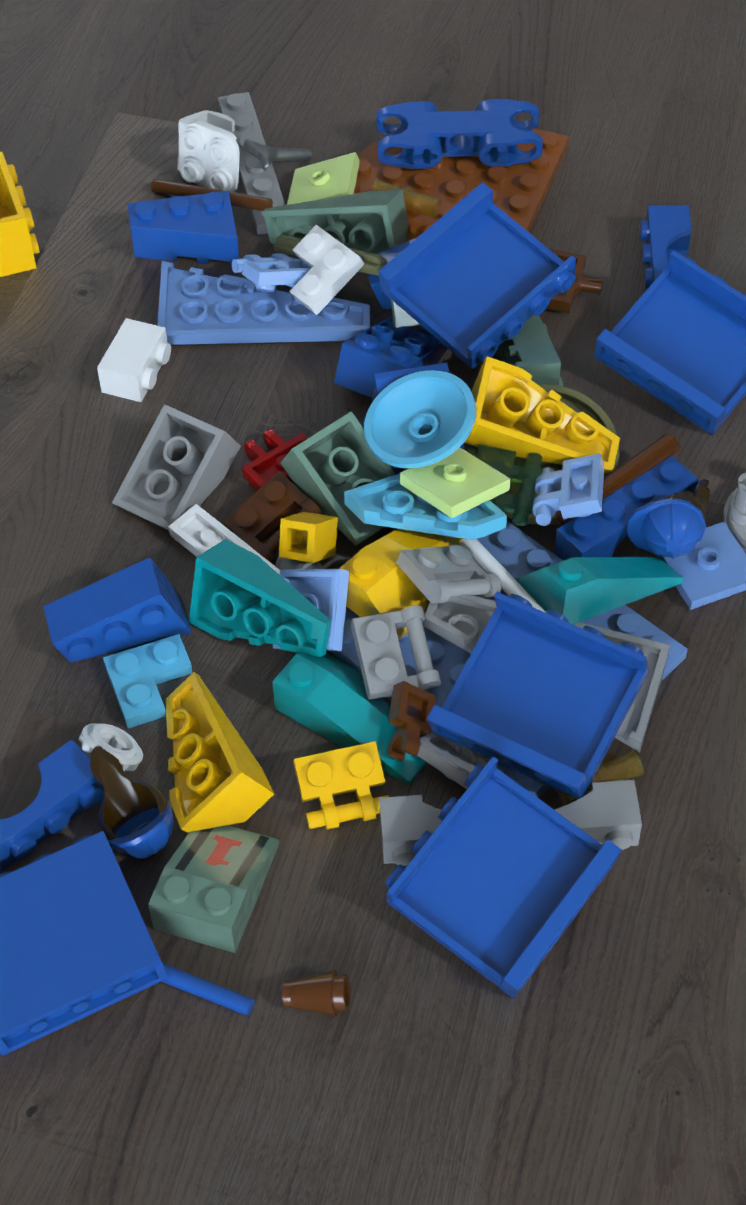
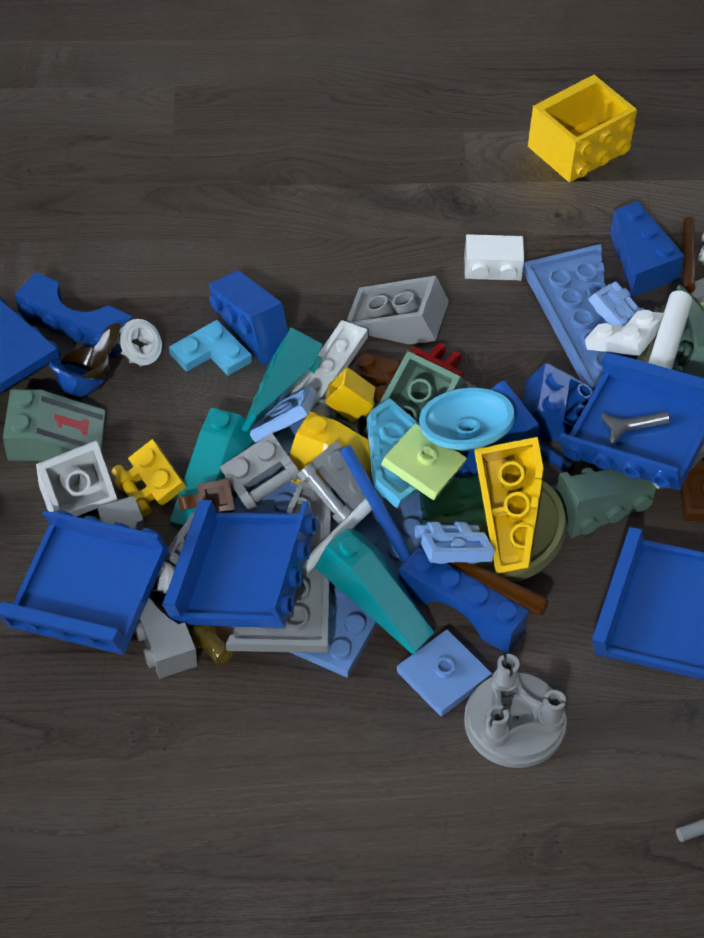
camera: 70 degrees right, 0 degrees up
(211, 765) = (137, 409): yellow wedge -> none
(343, 859) = (76, 481): none -> white slope
(351, 226) = (671, 329): none -> white piece
(473, 297) = (620, 426): none -> flat silver piece
(492, 545) = (376, 503): none -> blue bar
(671, 524) = (455, 627): blue piece -> none

